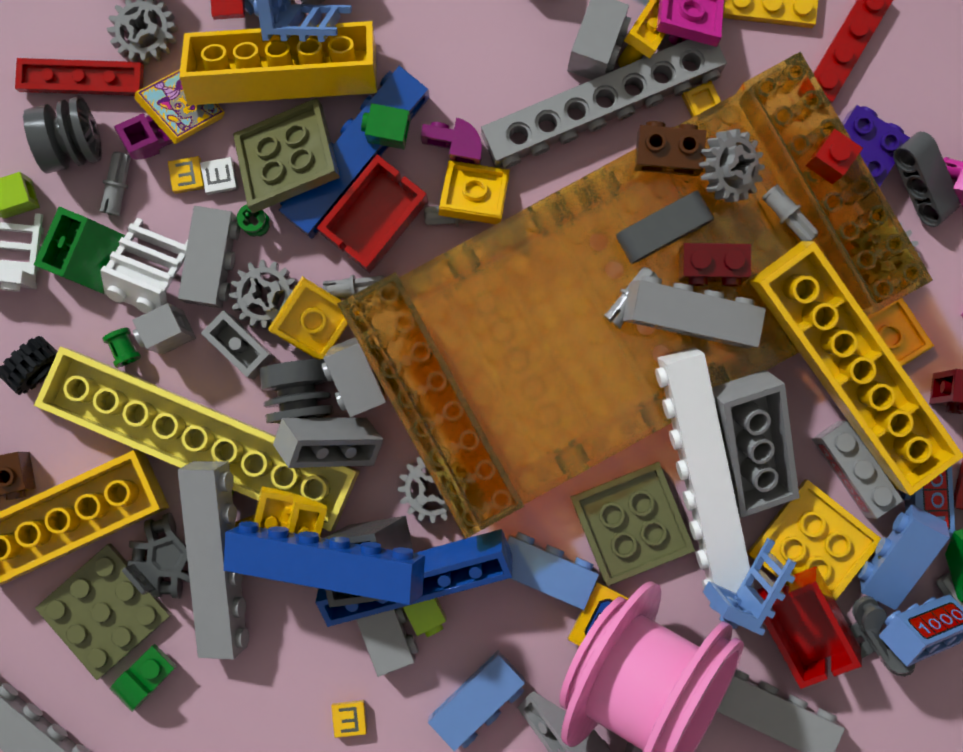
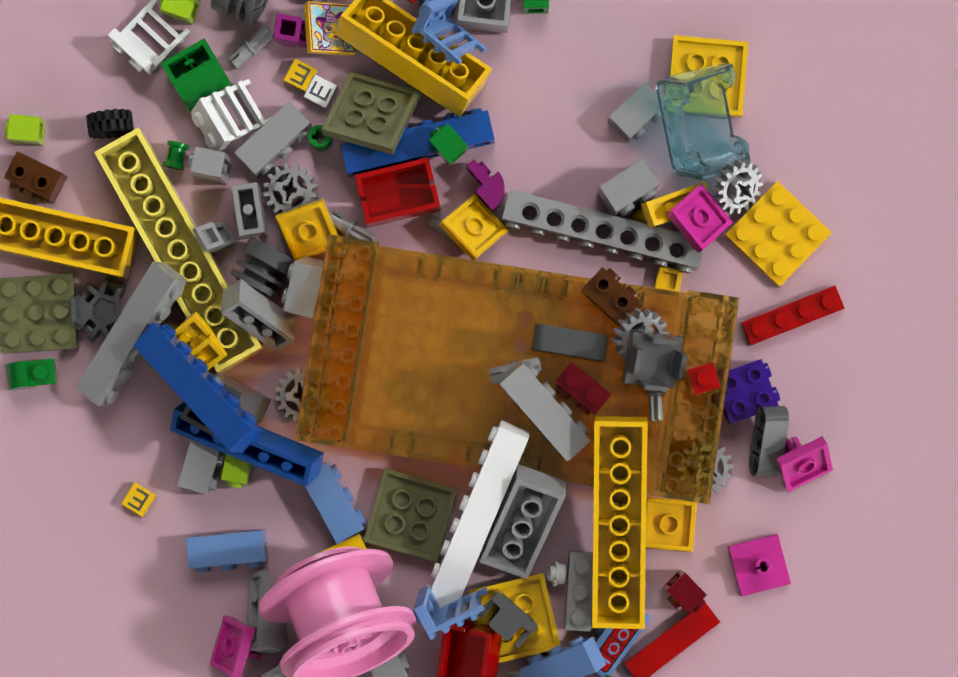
camera: 40 degrees right, 0 degrees up
(222, 397) = (214, 236): none -> light grey slope
(769, 176) = (654, 360): none -> dark grey panel
(817, 551) = (508, 618): none -> dark grey panel
(820, 470) = (556, 573): none -> white plate

